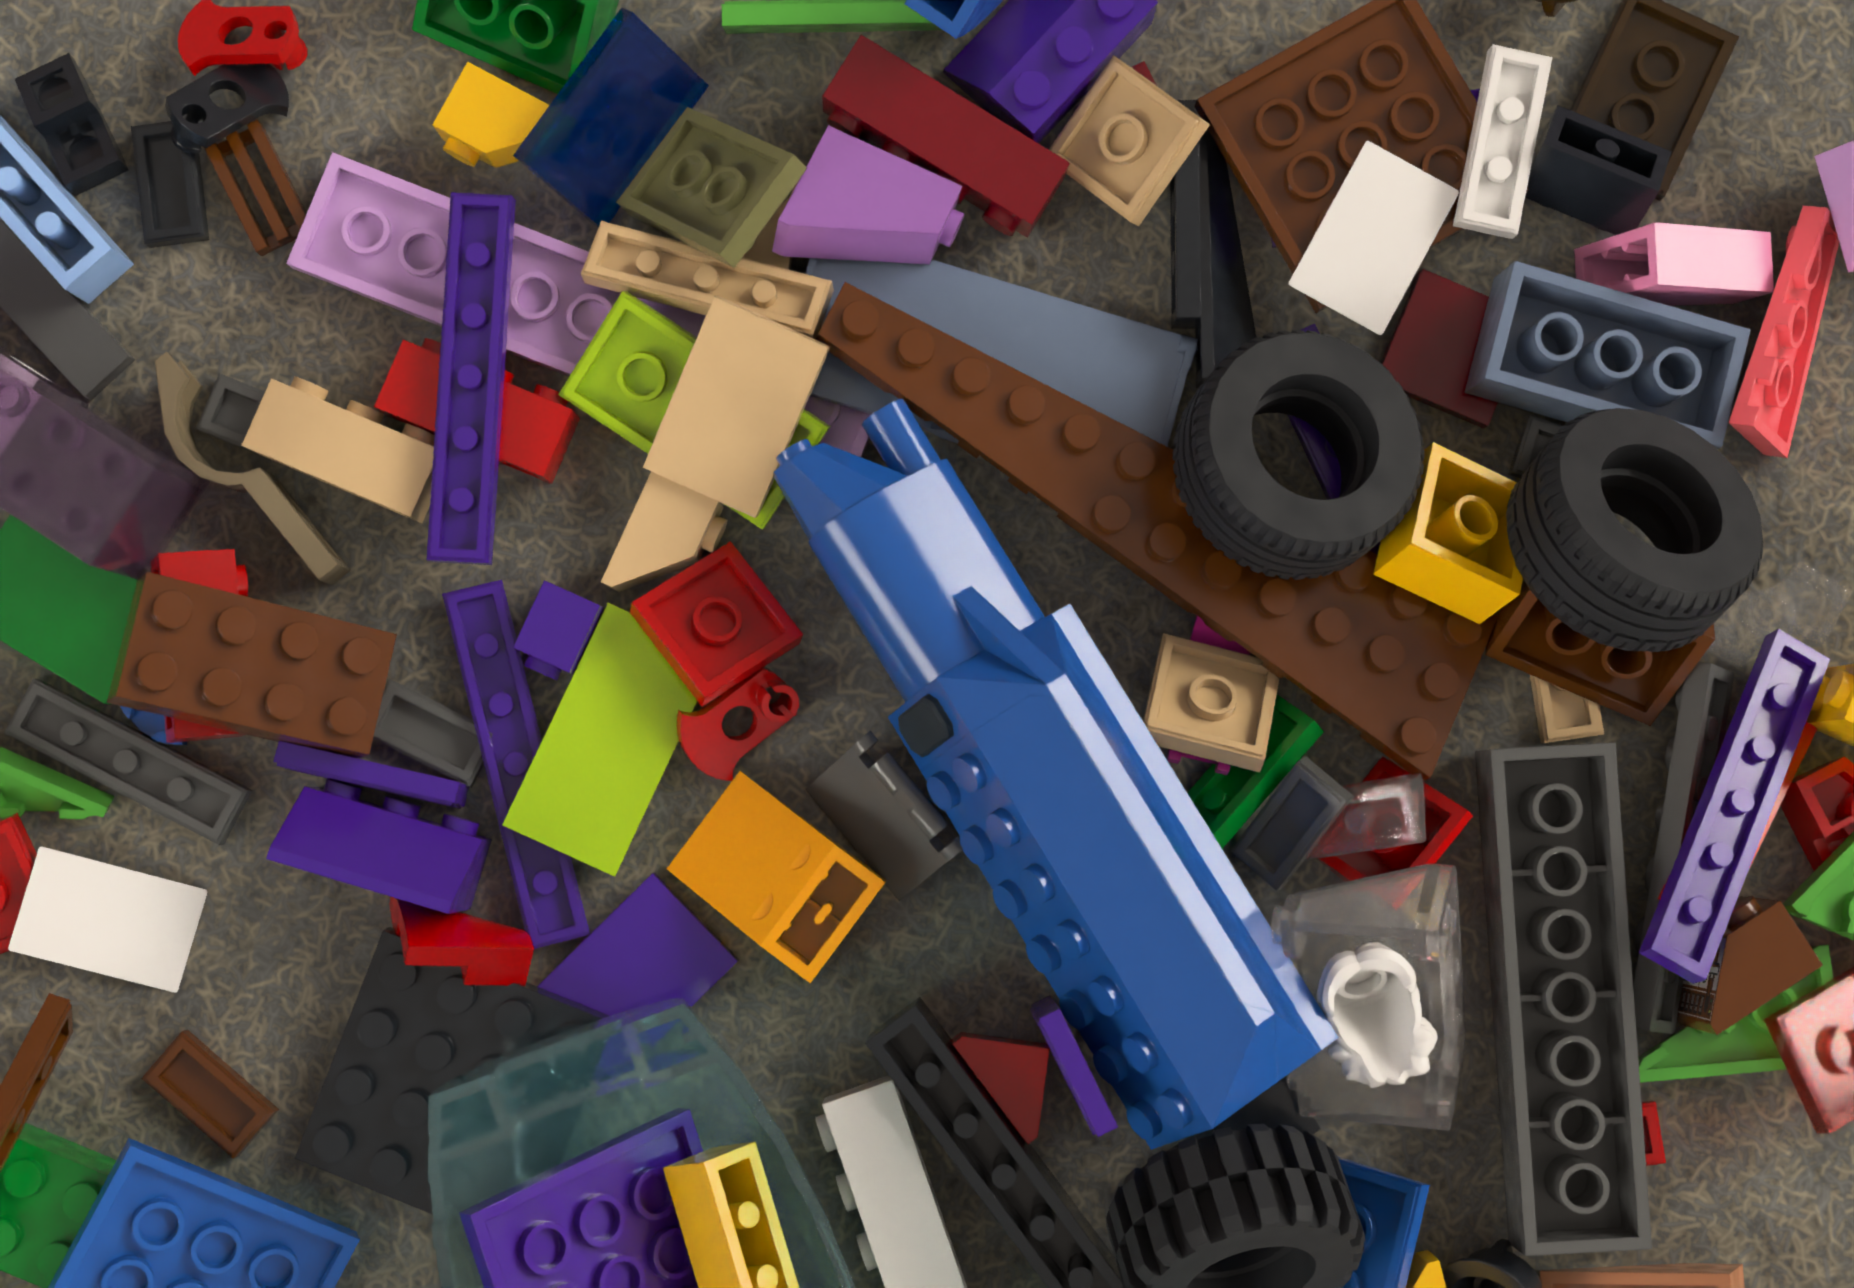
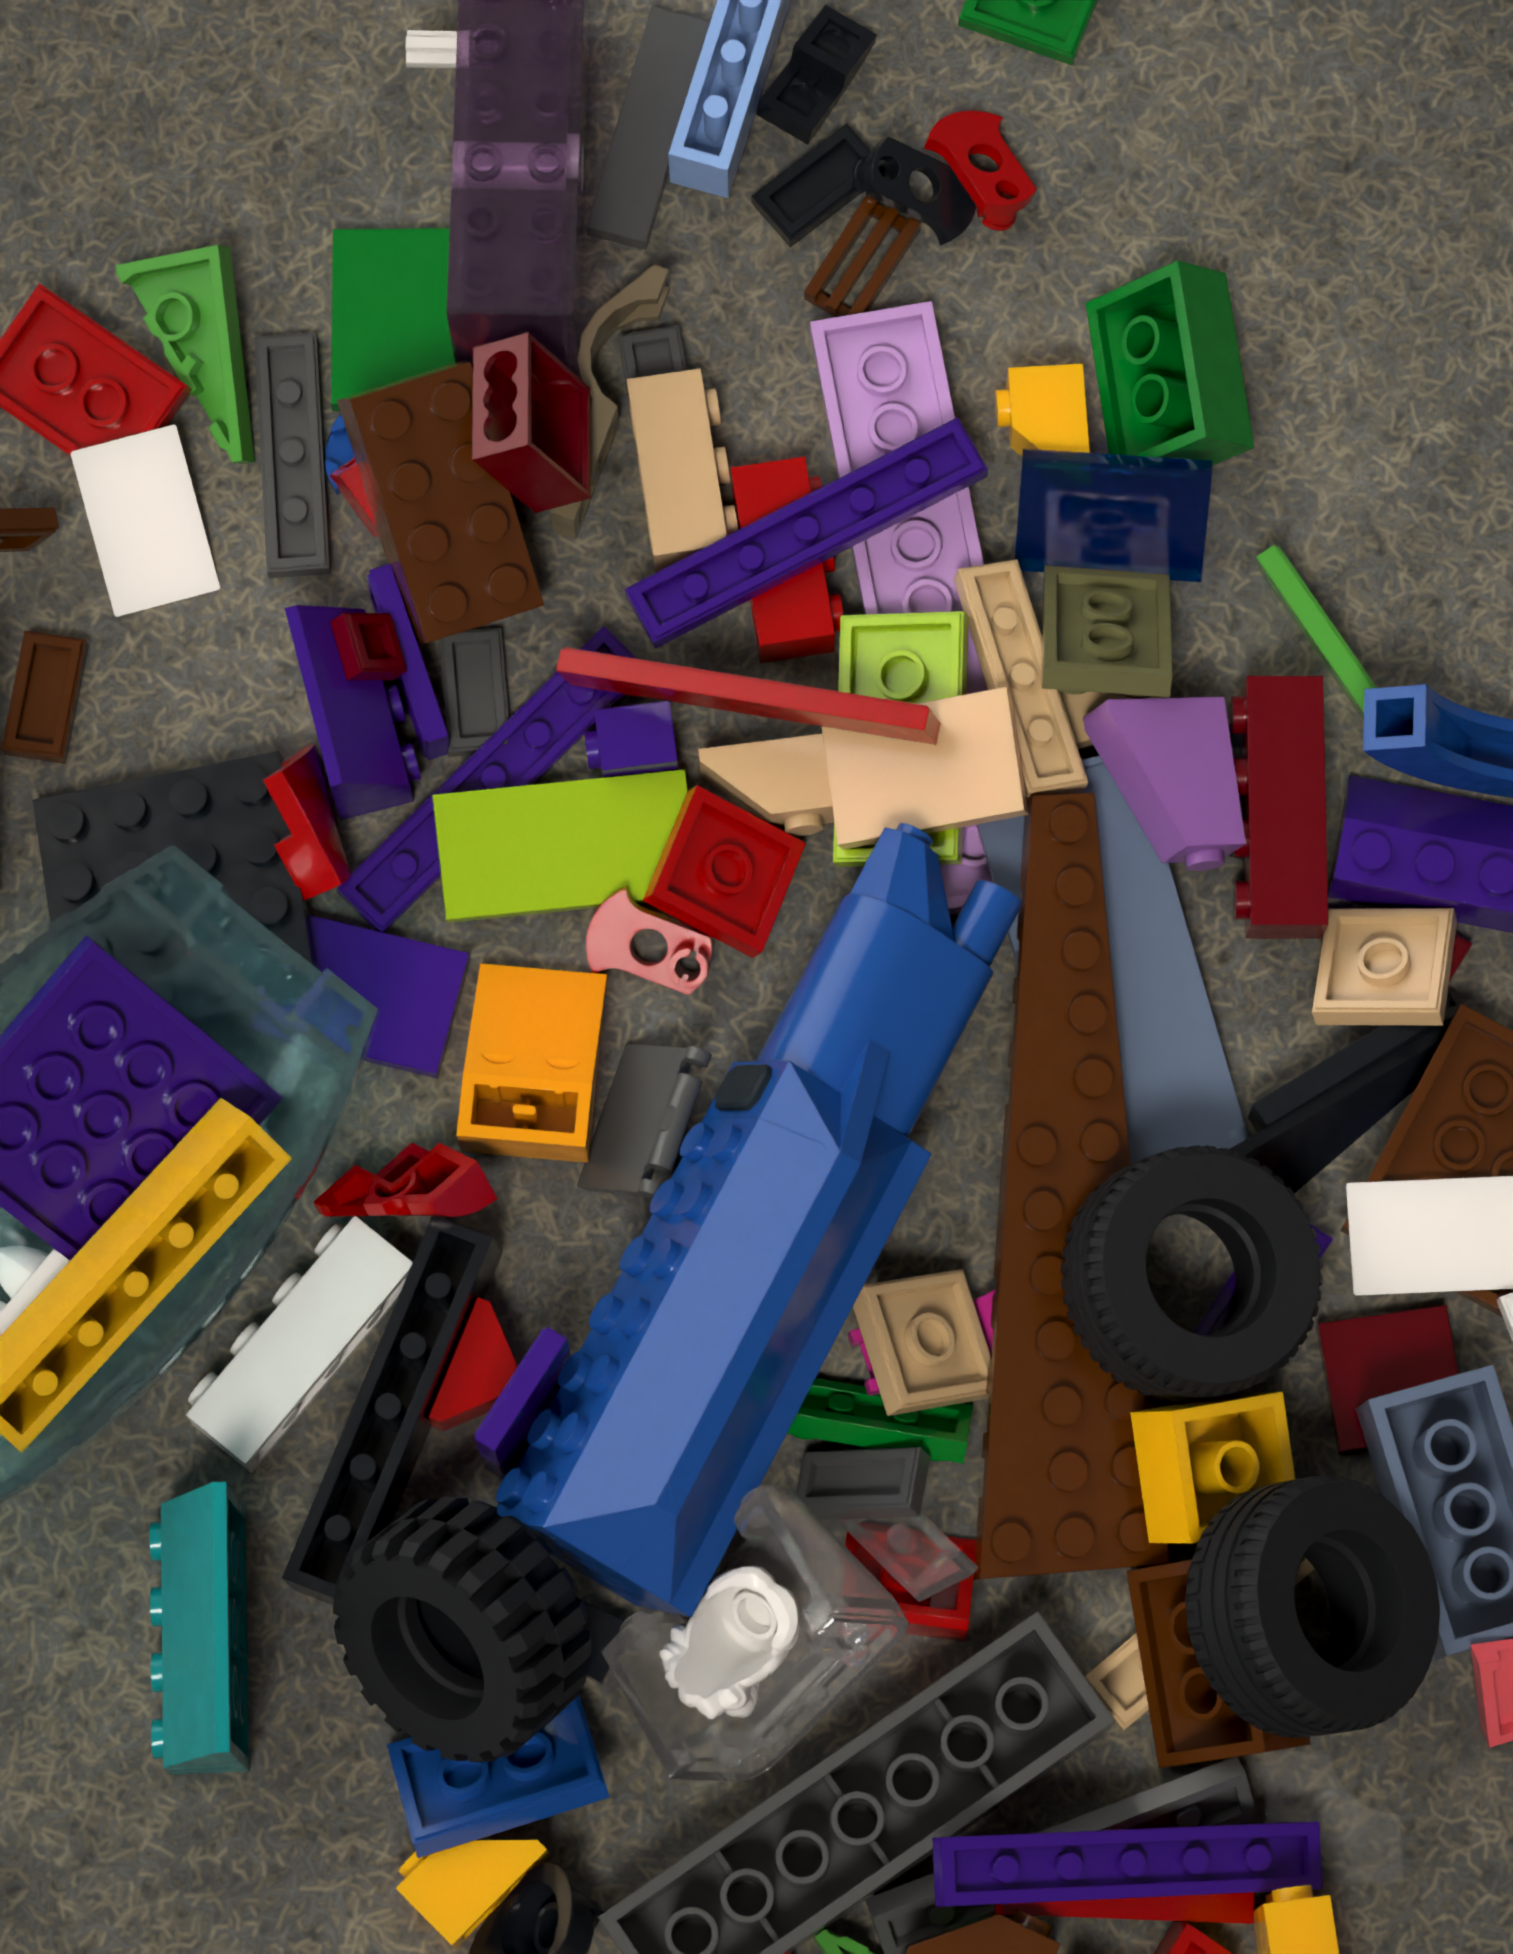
camera: 60 degrees right, 10 degrees down
(232, 551) = (531, 423): none -> dark red piece
(341, 804) = (368, 646): none -> dark red tile
(584, 513) = (749, 695): none -> red tile
(826, 1045) = (411, 1185): none -> red slope

